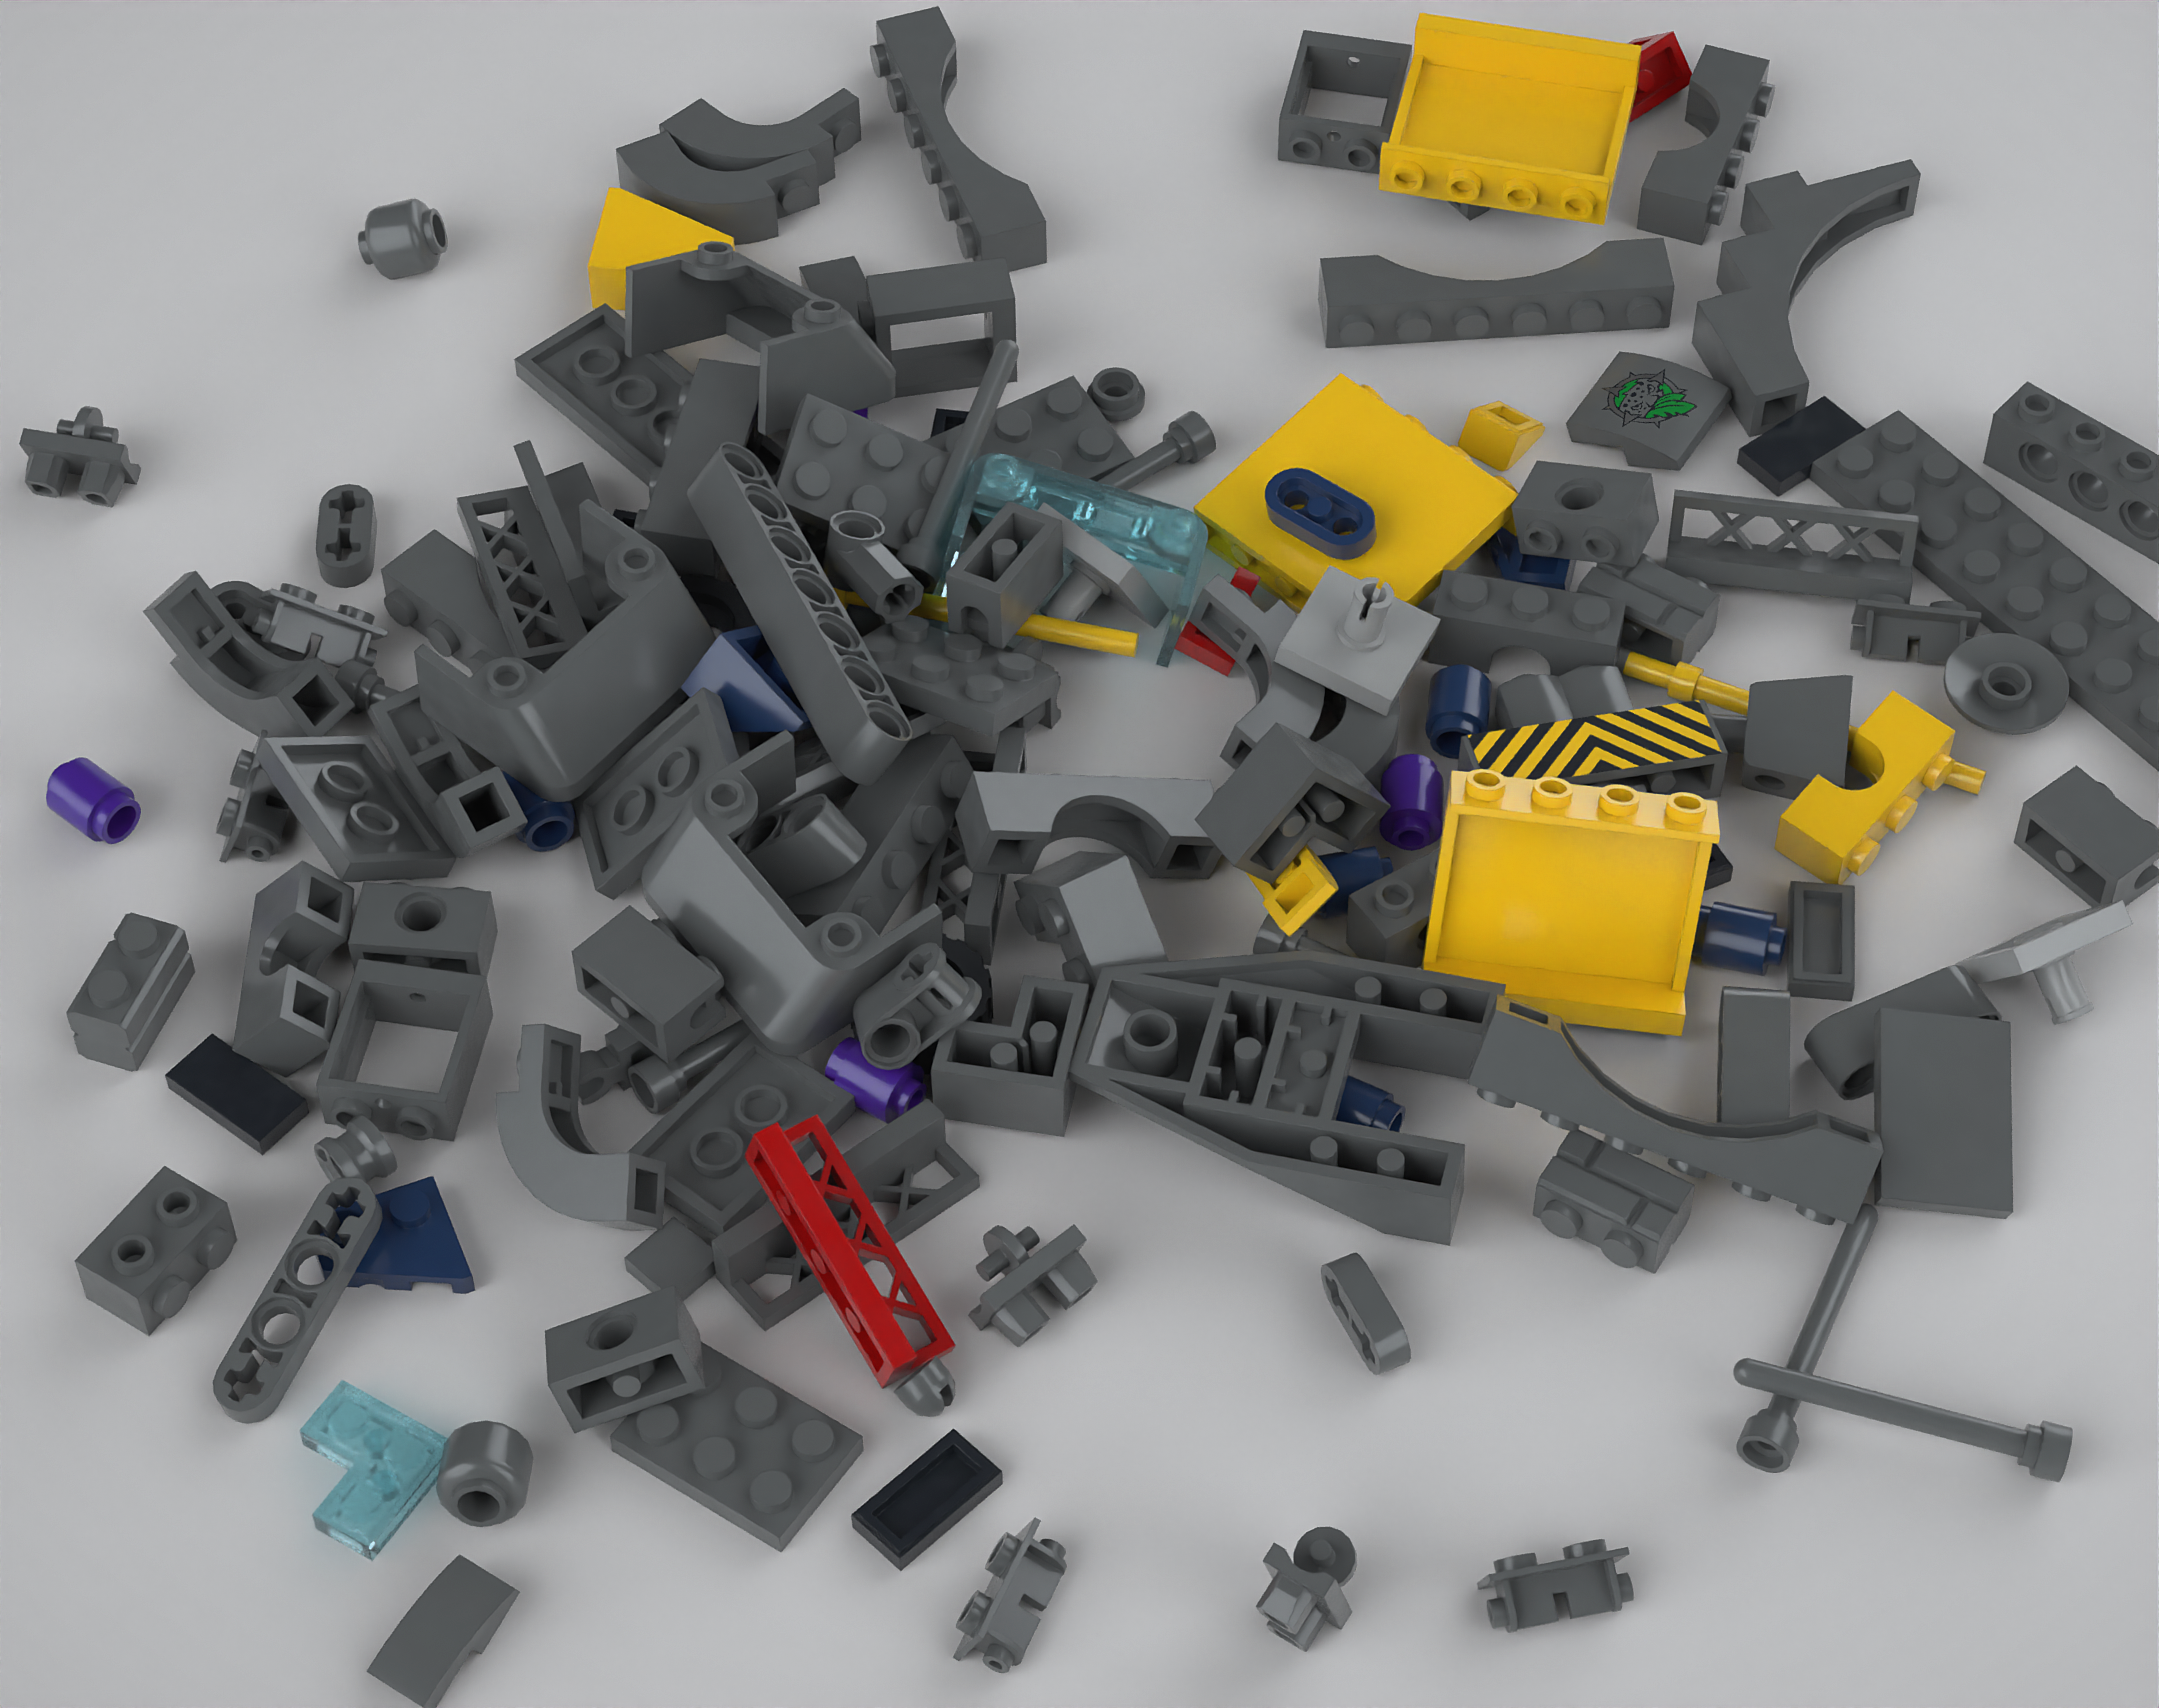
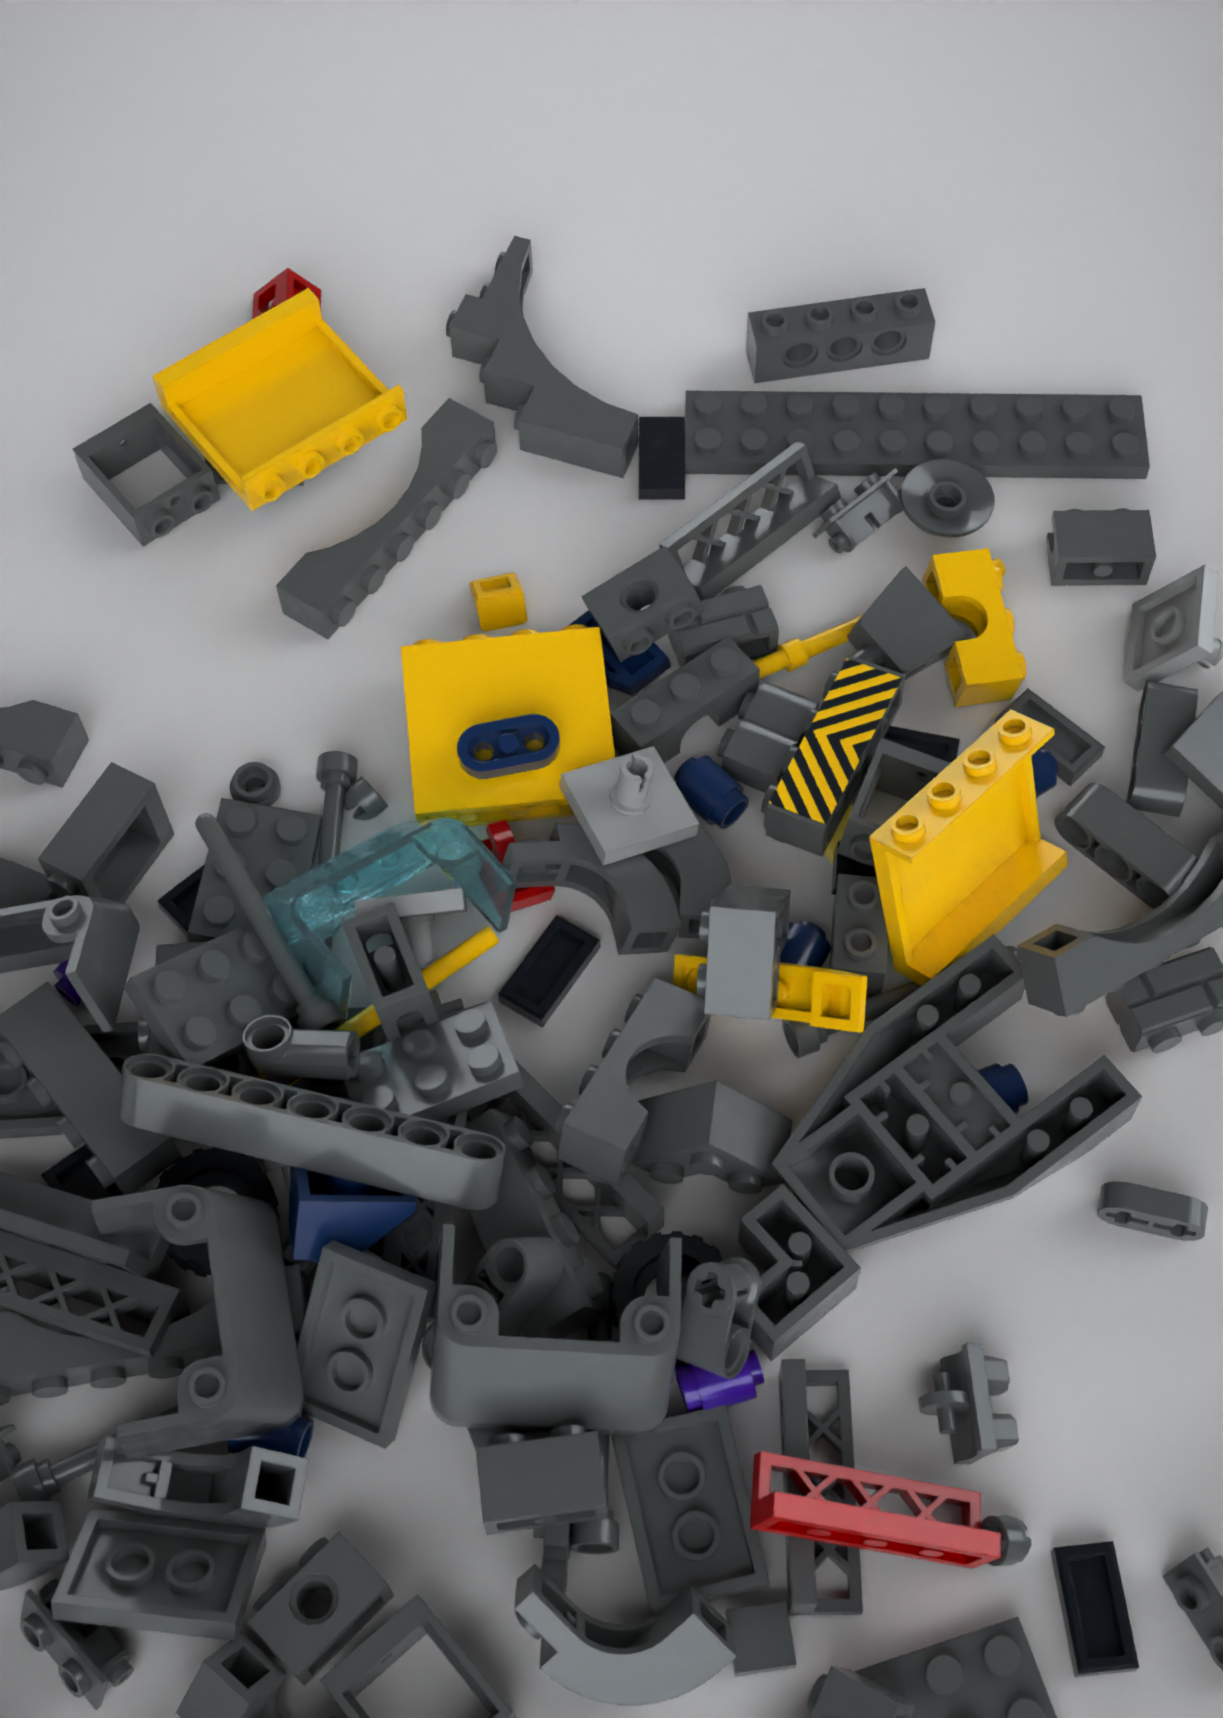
camera: 50 degrees left, 10 degrees up
(1153, 720) = (549, 971): none -> black tile
(1185, 476) = (370, 801): none -> dark grey hinge
(1416, 801) = (761, 866): dark purple brick -> none
(1649, 410) = (562, 510): dark grey slope -> none
(1689, 184) = (361, 288): dark grey arch -> none

